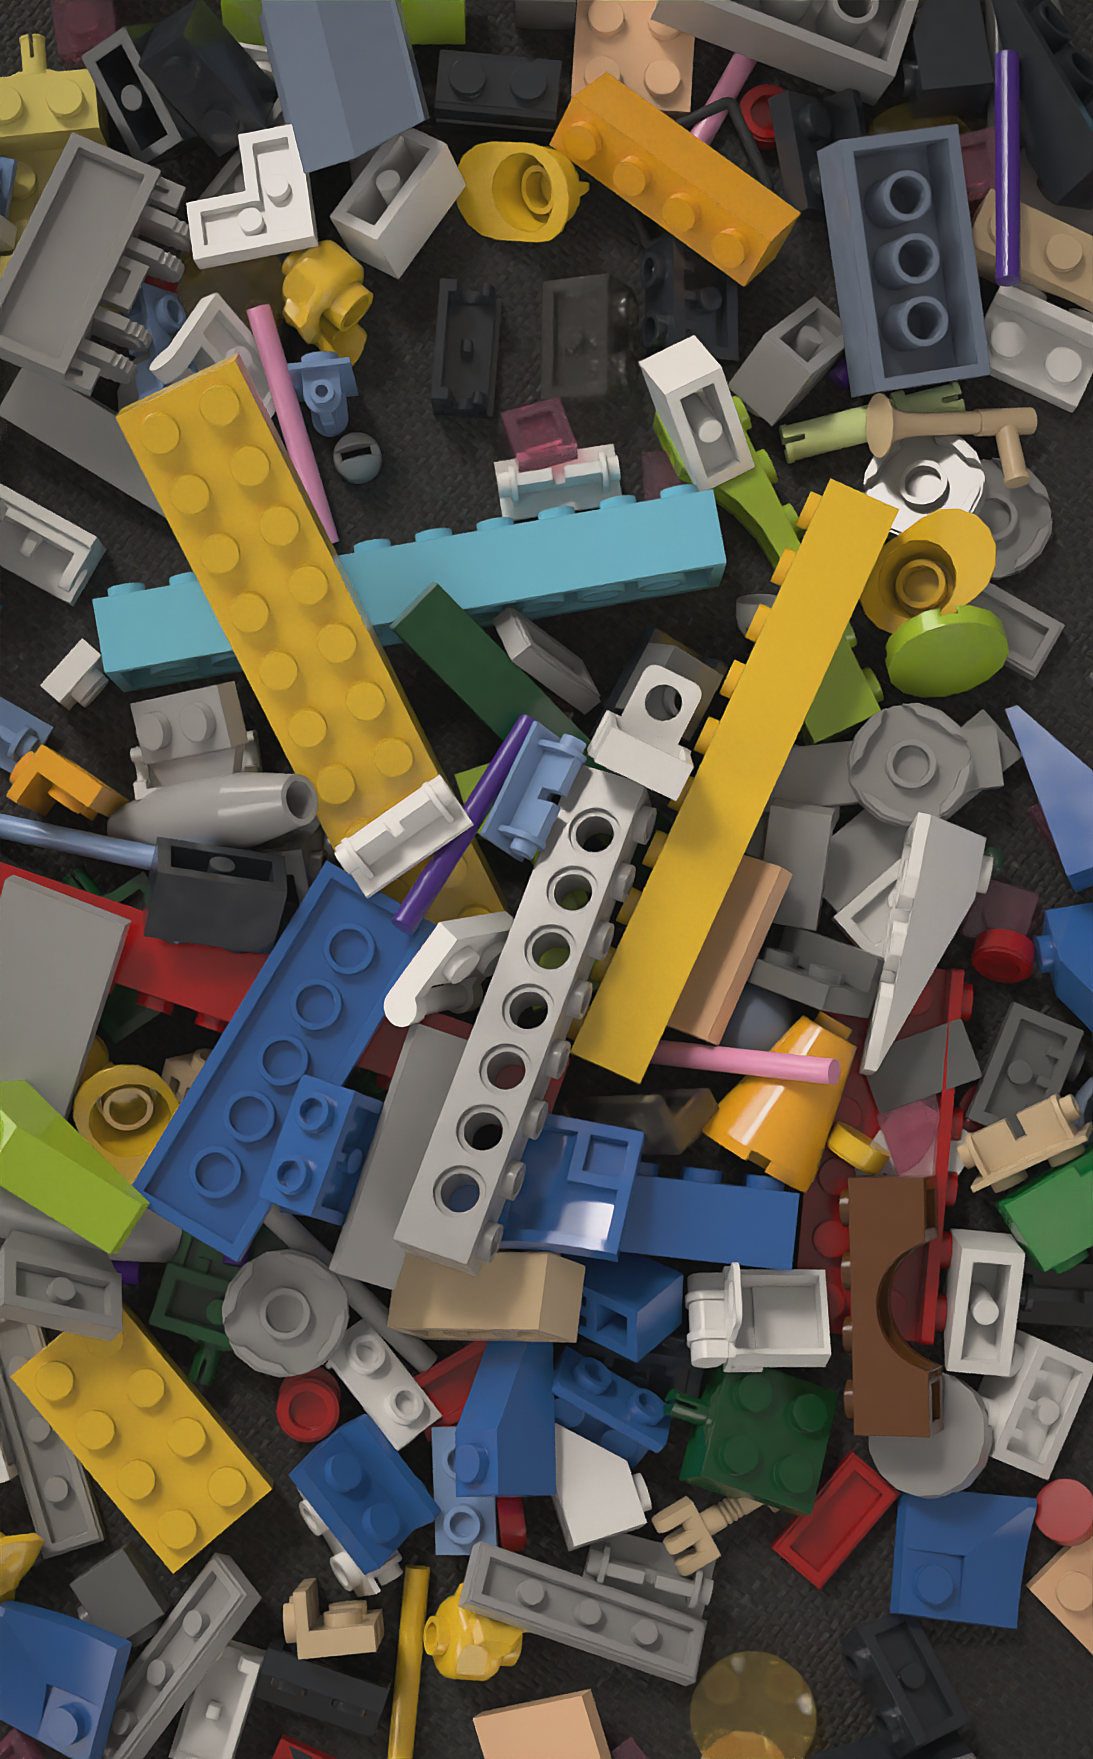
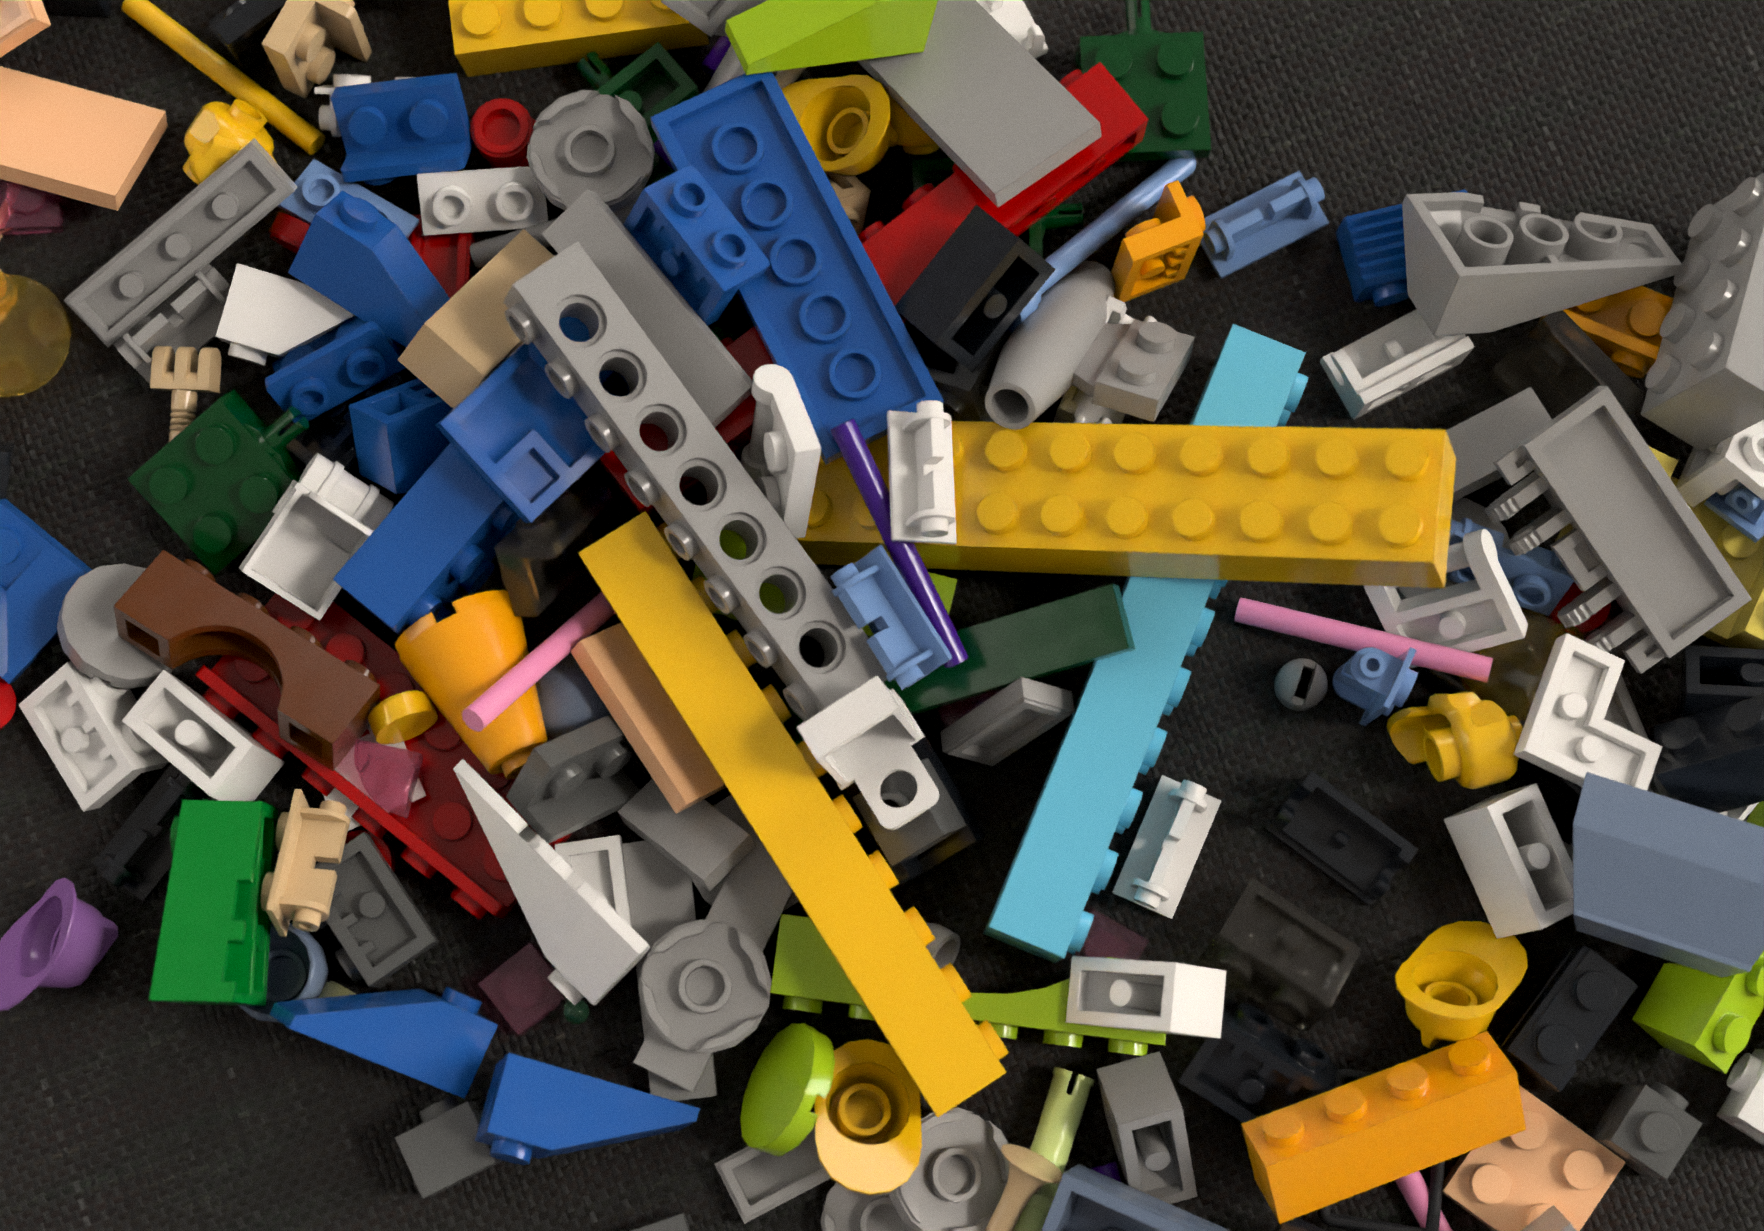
camera: 120 degrees right, 5 degrees down
(77, 677) = (1248, 303): white plate -> none
(539, 435) = (1218, 851): clear pink plate -> none
(842, 1515) = (112, 509): red tile -> none
(916, 1066) = (440, 818): dark grey sticker -> none
(1003, 955) = (485, 964): red tile -> none

